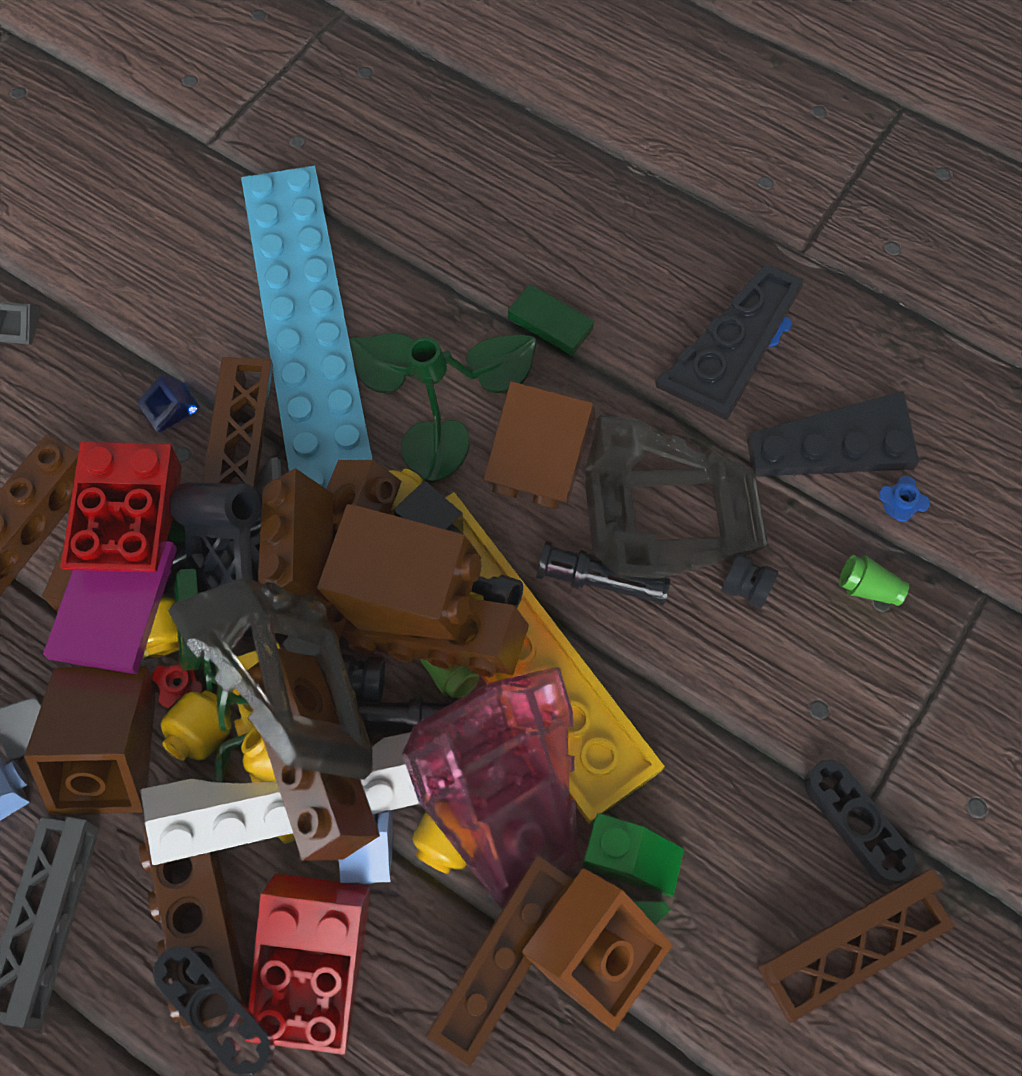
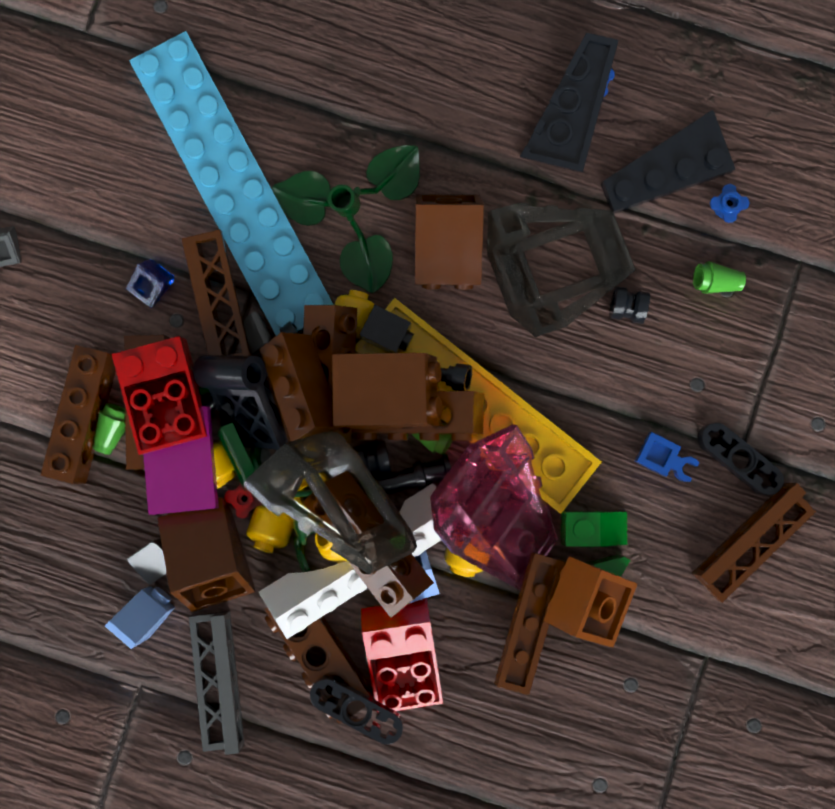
camera: 15 degrees left, 20 degrees up
(42, 549) = (109, 428): none -> bright green cone
(550, 319) = (423, 122): dark green tile -> none
(653, 589) = (505, 331): black pin -> none
(749, 784) = (661, 456): none -> blue plate

